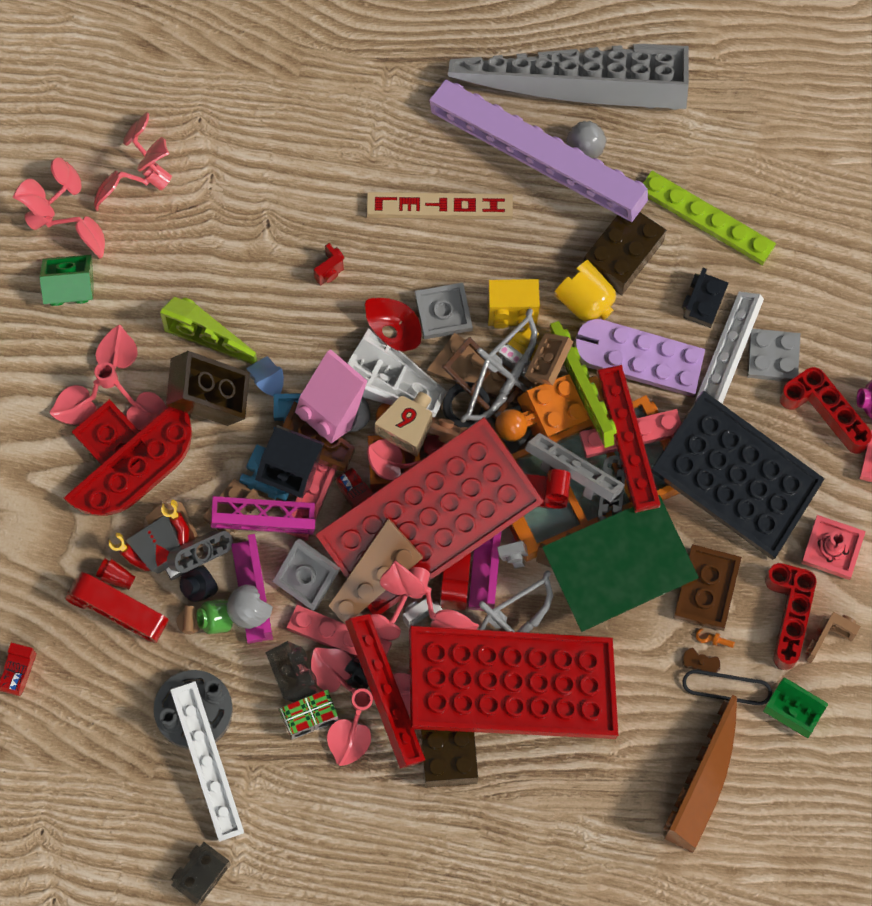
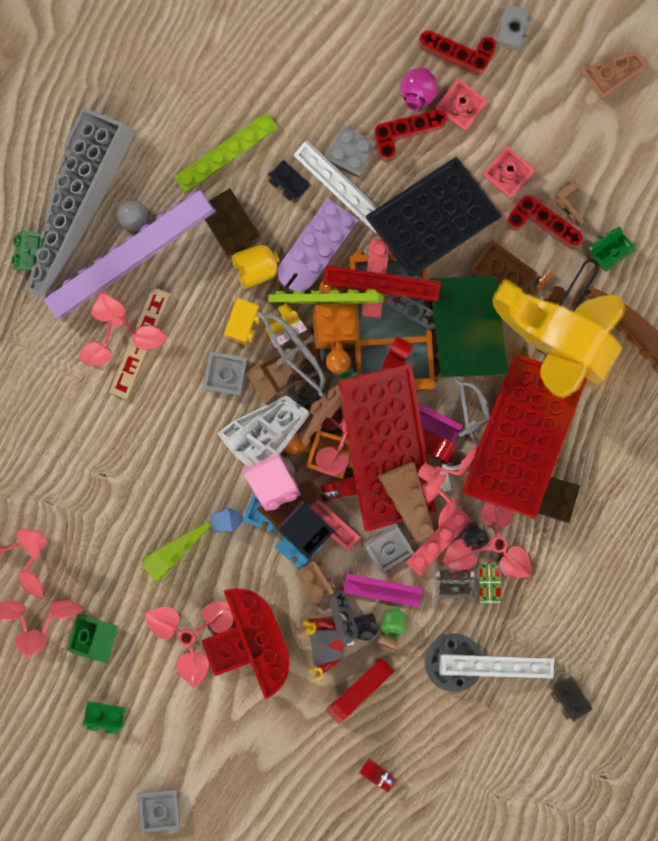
camera: 65 degrees left, 15 degrees up
(114, 574) = (334, 682): red cone -> none
(207, 388) = (225, 567): dark brown brick -> none
(247, 608) = (400, 600): light grey hair -> none
(262, 521) = (342, 564): dark pink fence -> none
(330, 268) = (161, 444): red bracket -> none
(384, 691) = (497, 526): red plate -> none
(389, 312) = (229, 404): red piece -> none
(406, 423) = (312, 435): tan torso -> none
(463, 140) = (111, 310): none -> coral plant
(503, 43) = (26, 246): none -> green bracket
(513, 553) = (432, 397): light grey plate -> none
(548, 359) = (301, 315): medium nougat bracket -> none
(558, 457) = (388, 330): light grey hinge -> none
(658, 676) = (573, 341): none -> yellow animal

